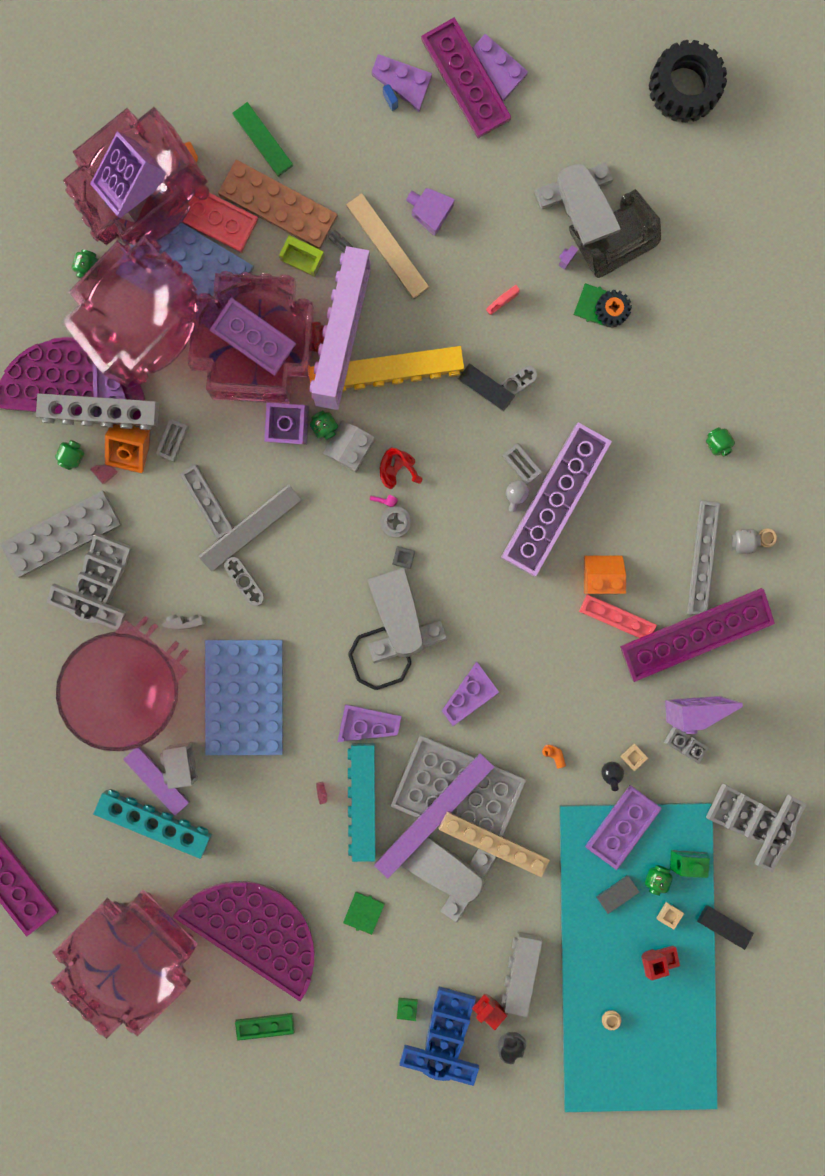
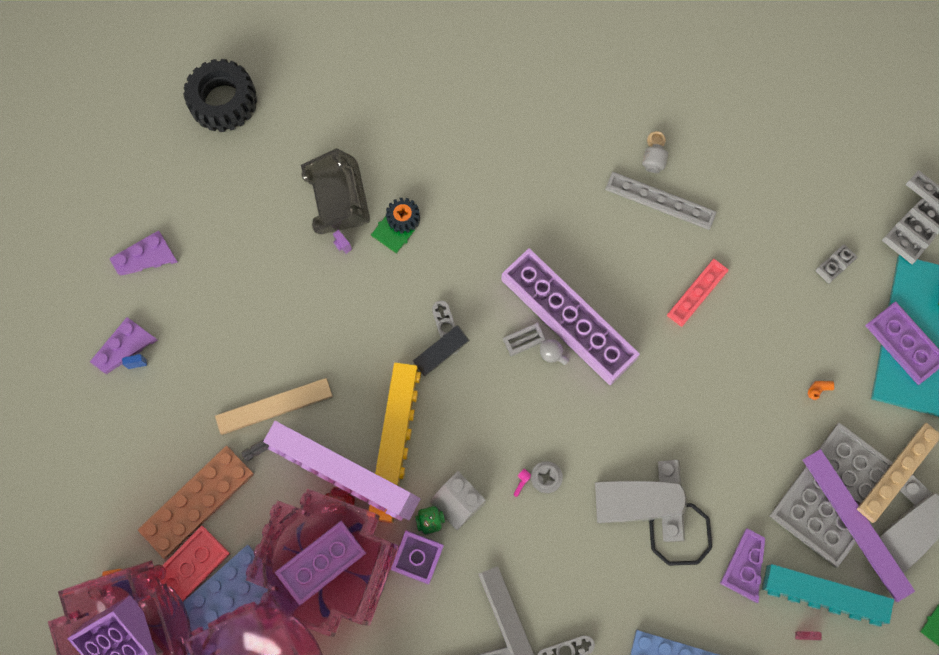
camera: 70 degrees left, 15 degrees down
(262, 139) = (127, 497): green tile -> none
(301, 256) = (255, 492): lime panel -> none
(388, 472) = (485, 452): red helmet -> none
(403, 557) = (584, 479): dark grey tile -> none
(430, 208) = (253, 354): medium lavender torso -> none
(466, 77) = (142, 287): magenta plate -> none
(470, 695) = (741, 454): medium lavender wing -> none
(503, 299) = (362, 312): coral tile -> none
(583, 200) = (295, 213): light grey slope -> none
(604, 575) = (653, 292): orange slope -> none
(612, 774) = (852, 338): black piece -> none
(634, 757) = (838, 314): tan plate -> none
(697, 634) = (733, 225): magenta plate -> none
(698, 713) = (812, 238): medium lavender slope -> none
(720, 442) = (556, 156): green head -> none

